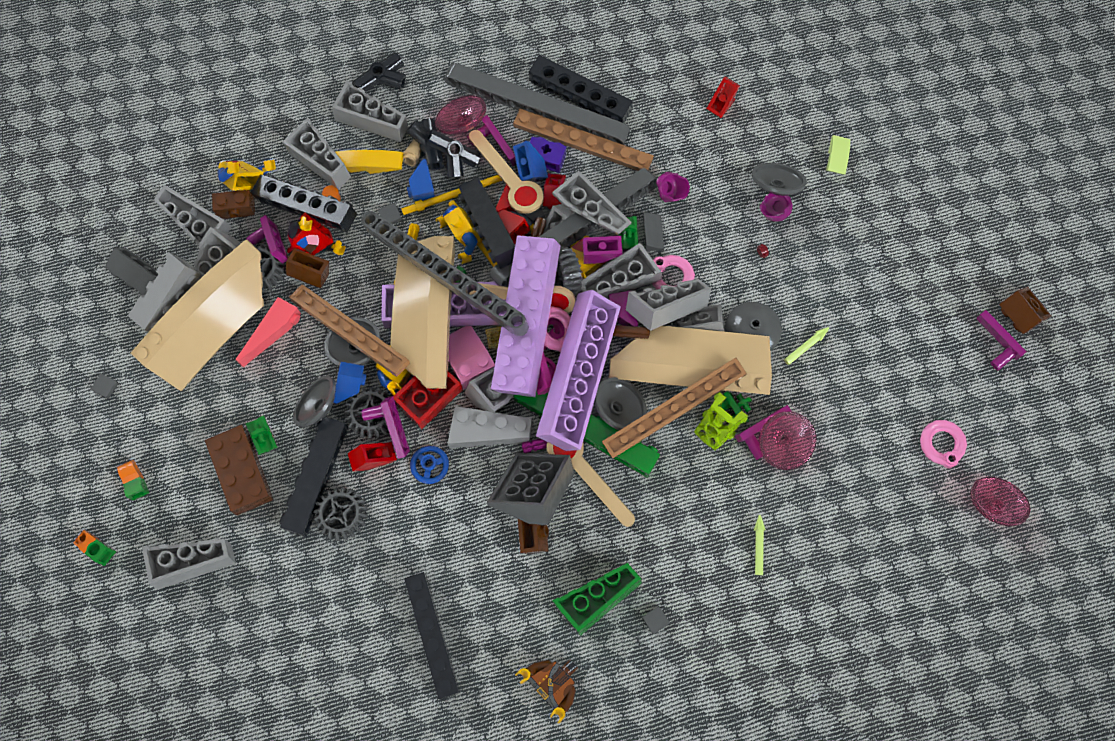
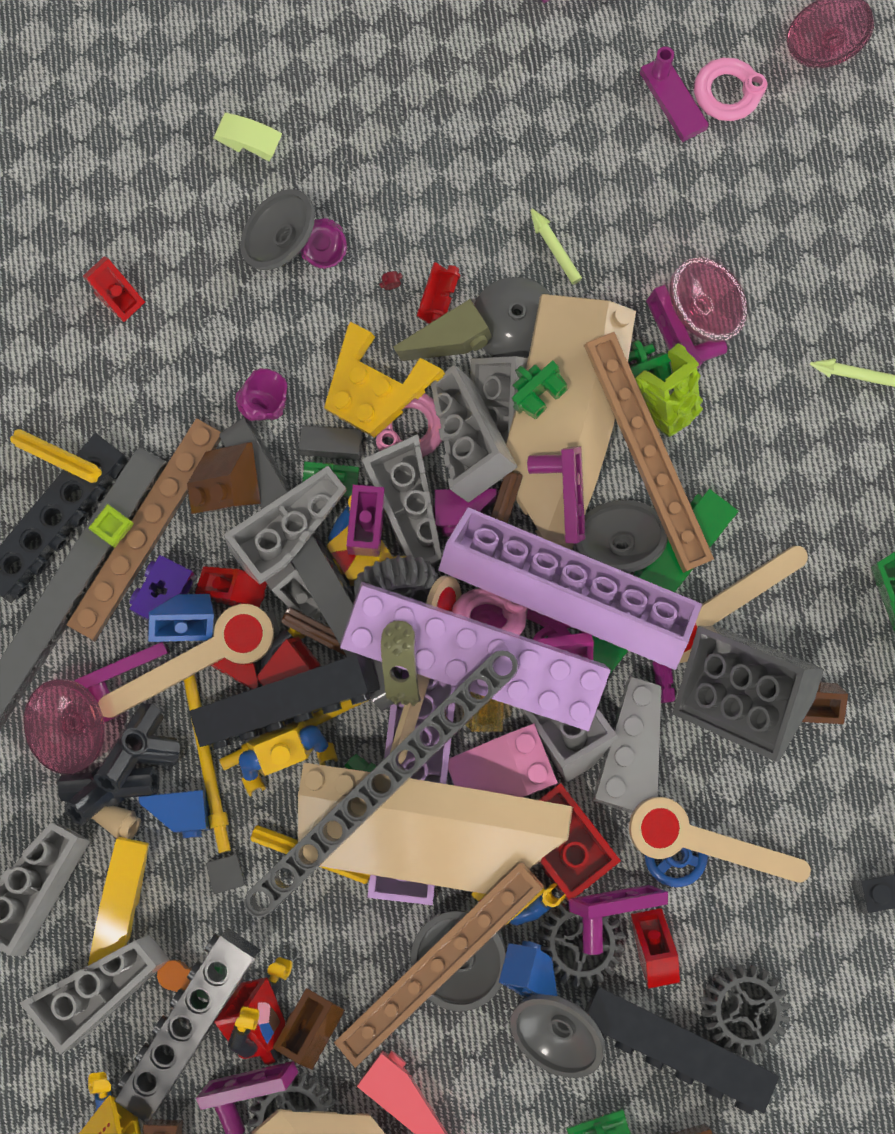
camera: 85 degrees left, 5 degrees up
(441, 447) = (663, 828): none -> tan piece
(519, 264) = (399, 650): none -> olive piece
(578, 118) = (111, 526): none -> lime tile
(615, 82) = (56, 456): none -> yellow axle
(615, 172) = (224, 480): none -> reddish brown slope
(642, 365) = (570, 465): none -> magenta piece
(685, 244) = (368, 396): none -> yellow wing
(702, 331) = (533, 384): none -> green hips
(734, 289) = (451, 334): none -> olive slope
(758, 278) = (437, 291): none -> red hinge
(929, 407) = (673, 95): none -> magenta piece

